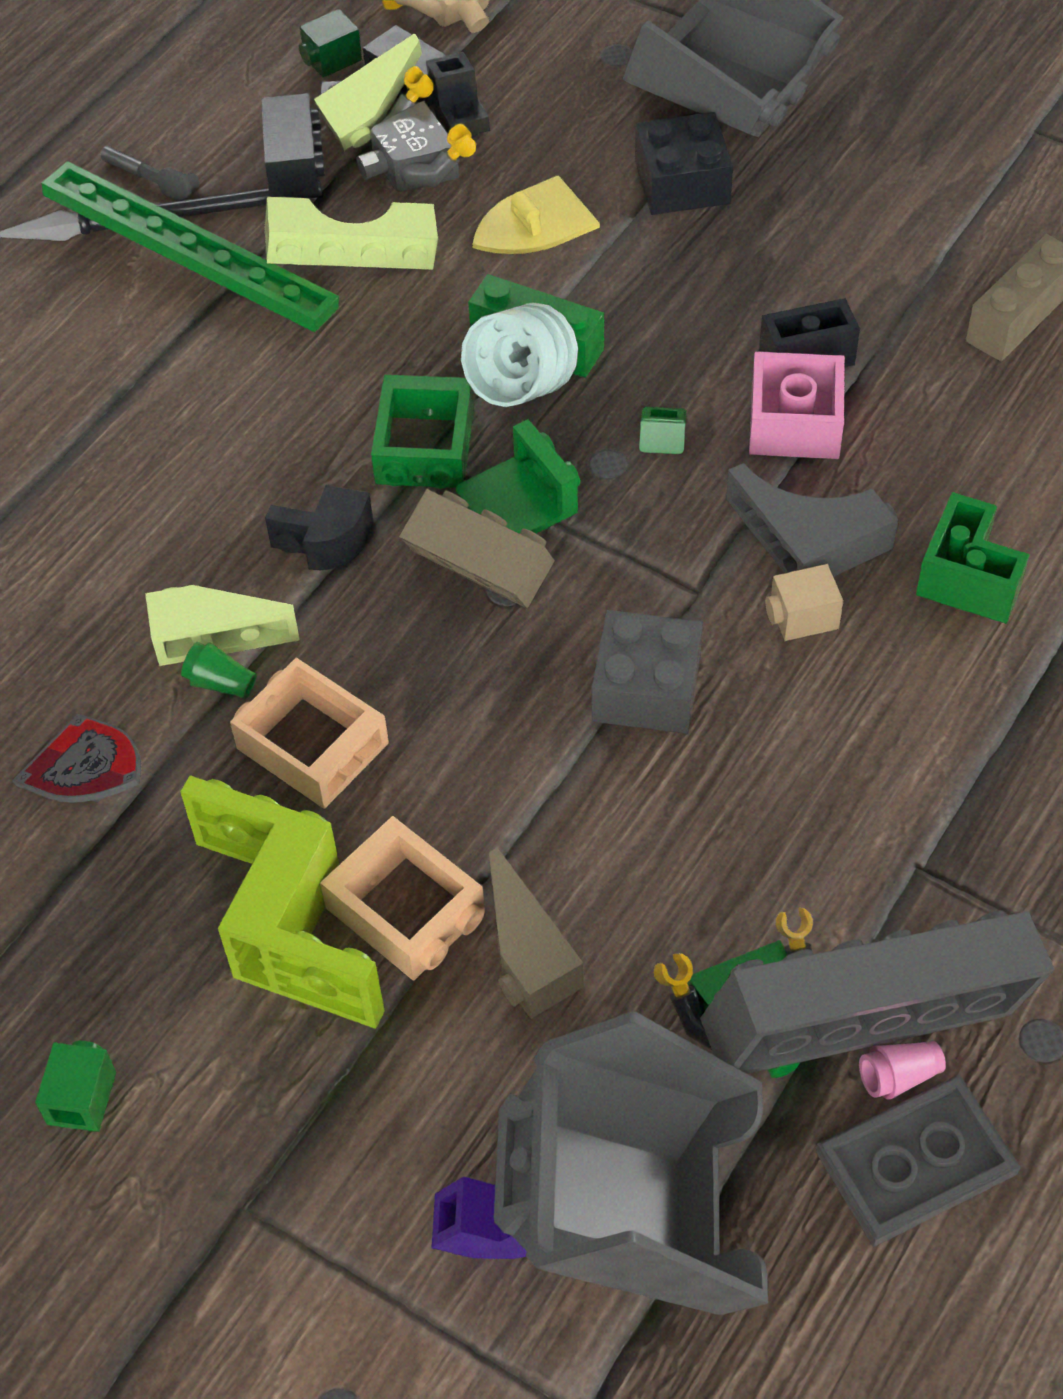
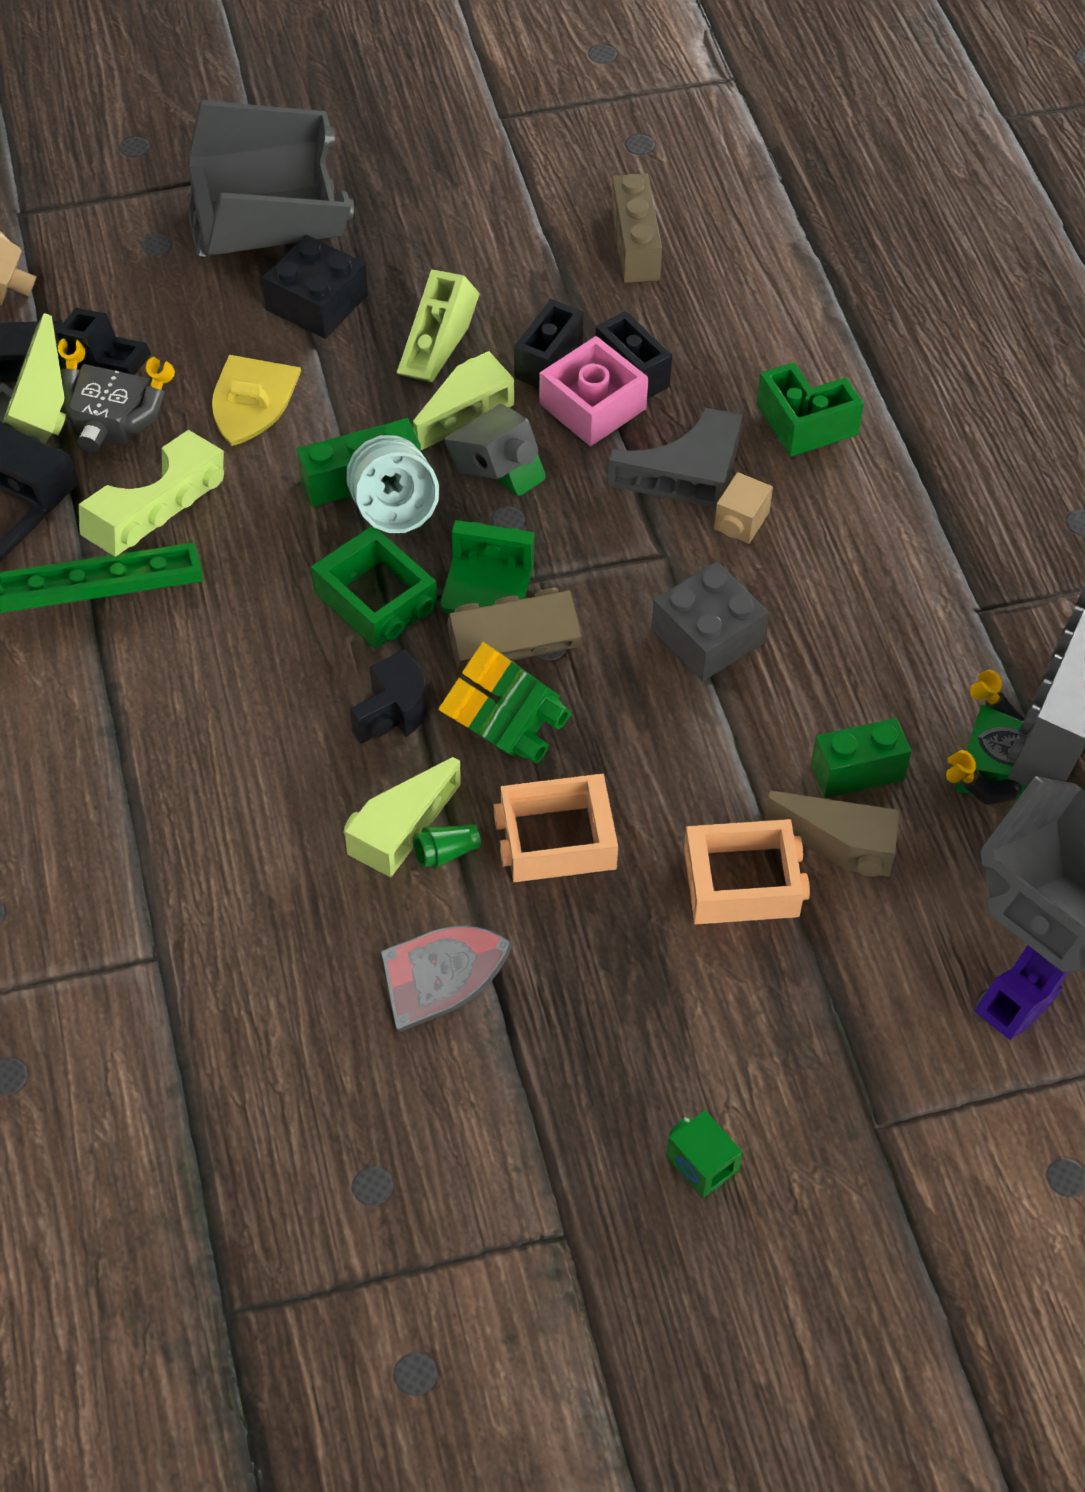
camera: 50 degrees left, 0 degrees up
(281, 901) = (689, 931): lime bracket -> none
(388, 597) = (516, 715): none -> green hips
(621, 893) = (860, 757): none -> green brick
(658, 386) = (492, 444): none -> dark grey torso
(685, 336) = (463, 397): none -> yellowish green slope
(745, 261) = (438, 325): none -> yellowish green slope
(870, 401) = (638, 348): none -> black brick

